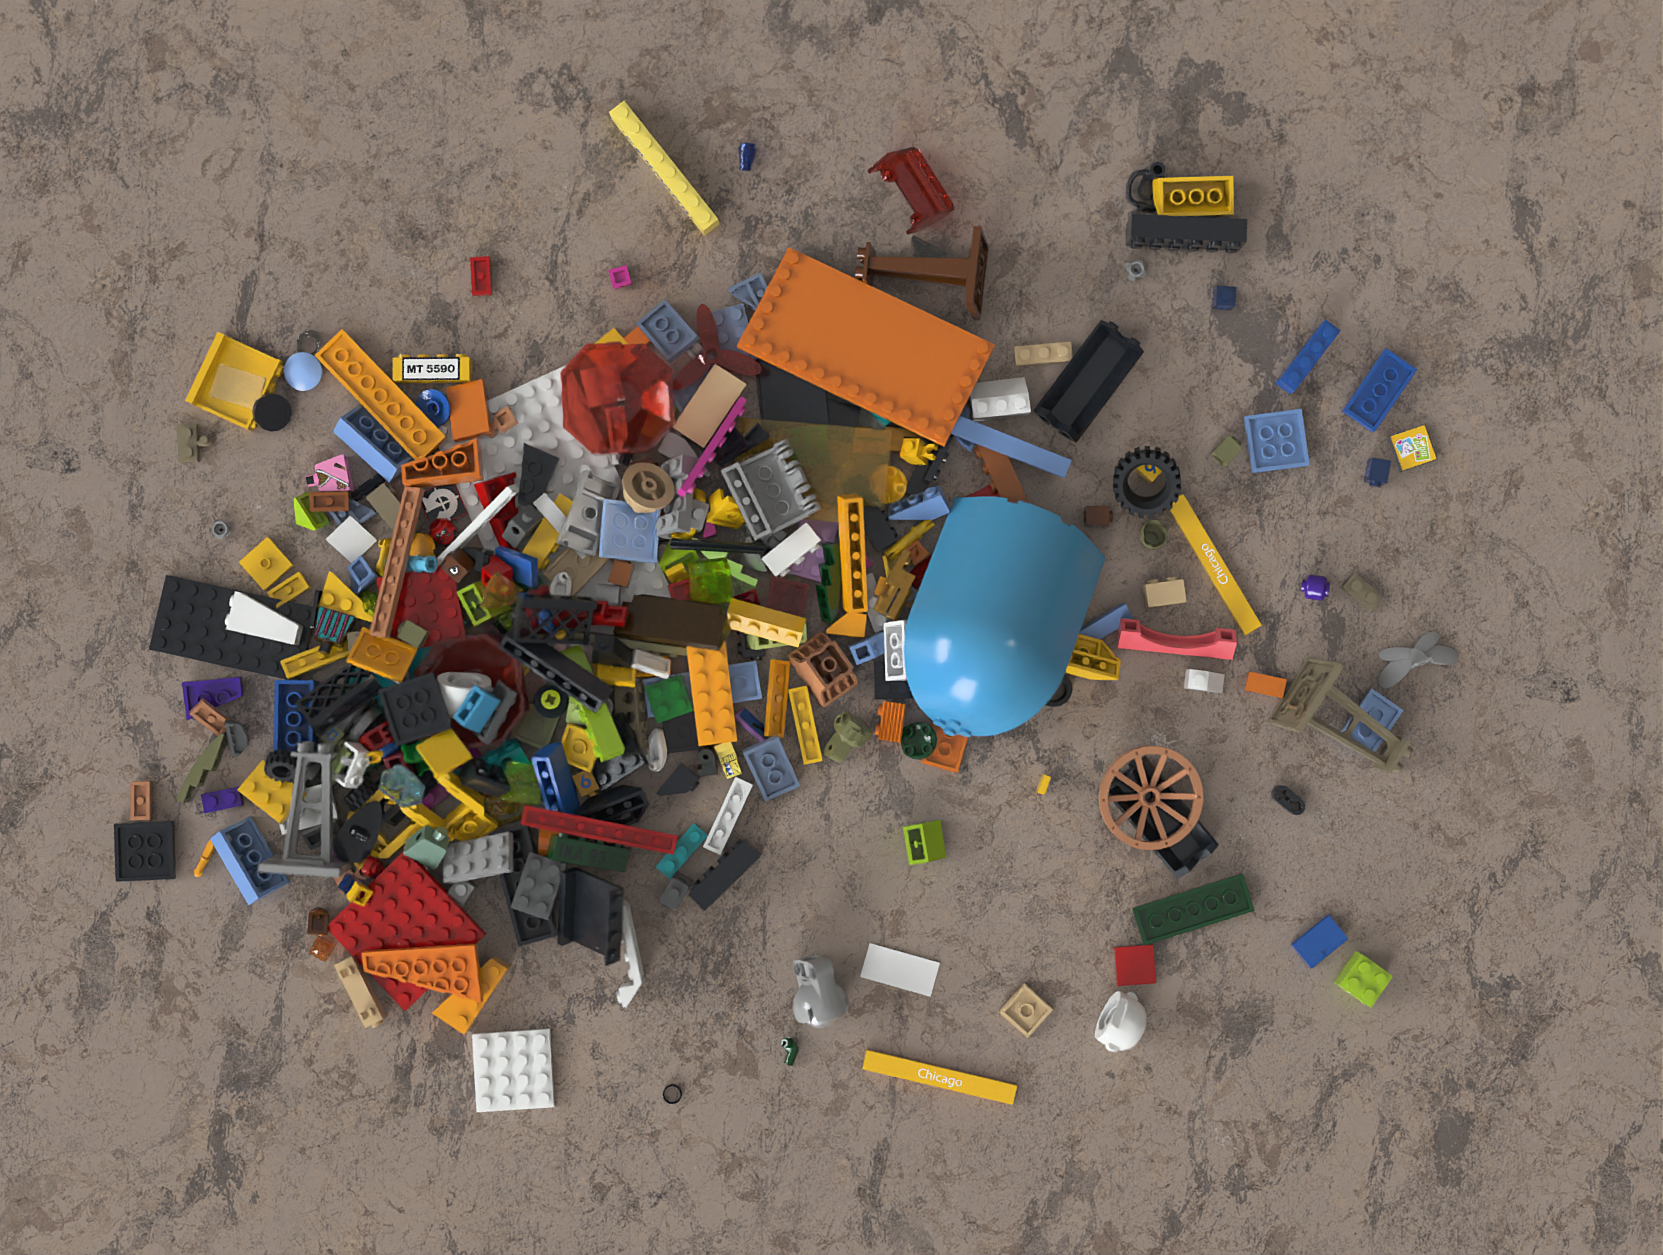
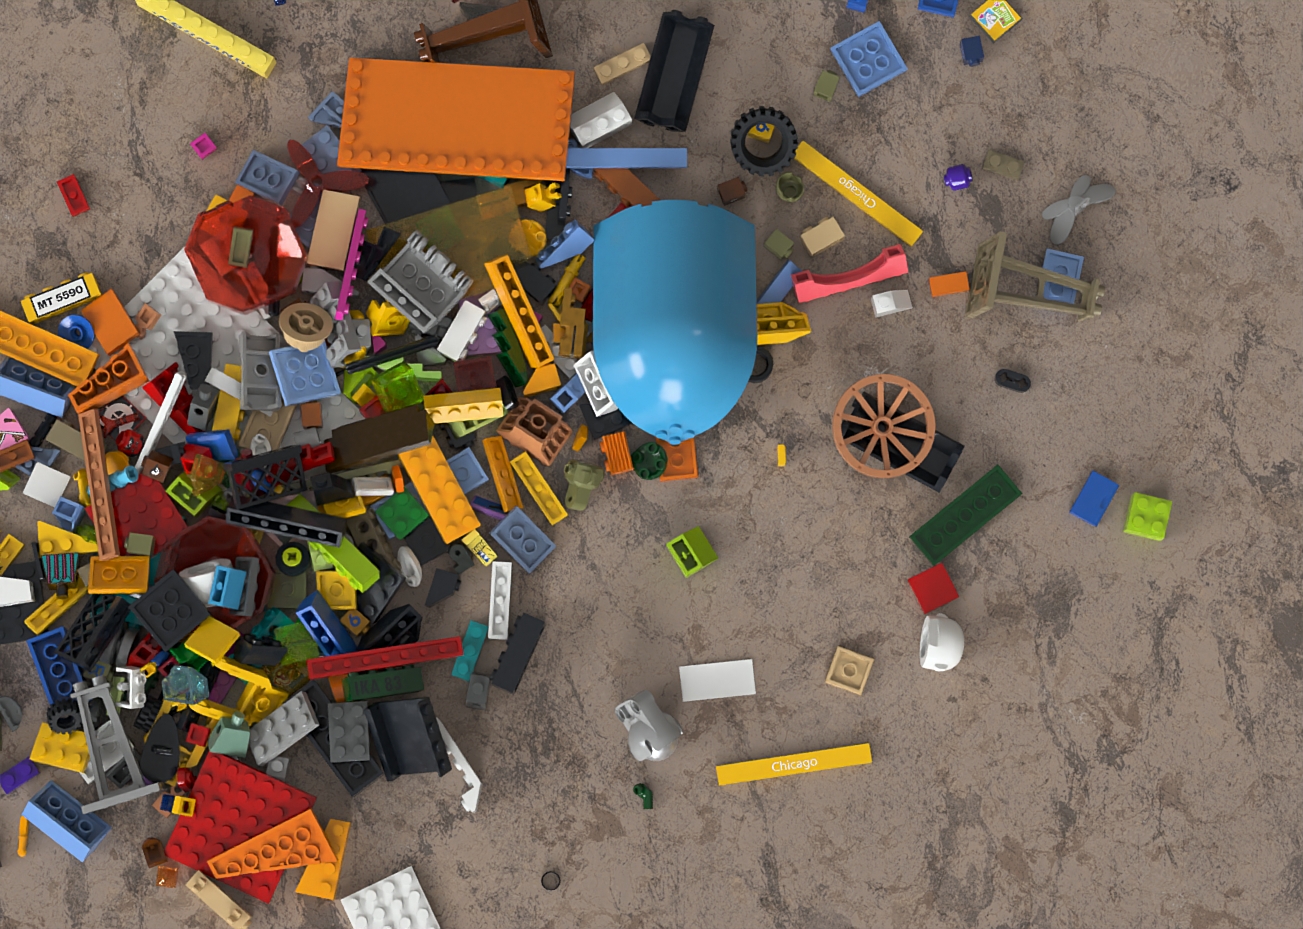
camera: 20 degrees left, 5 degrees down
(399, 831) = (198, 735): none -> red tile
(432, 507) = (111, 424): none -> clear red piece
(616, 388) = (240, 246): none -> olive tile
(677, 666) = (397, 479): none -> orange tile
(812, 623) = (508, 393): none -> black beam
(829, 532) = (490, 301): none -> white tile
(863, 692) = (580, 438): none -> light orange tile
(1121, 585) = (779, 245): none -> olive brick

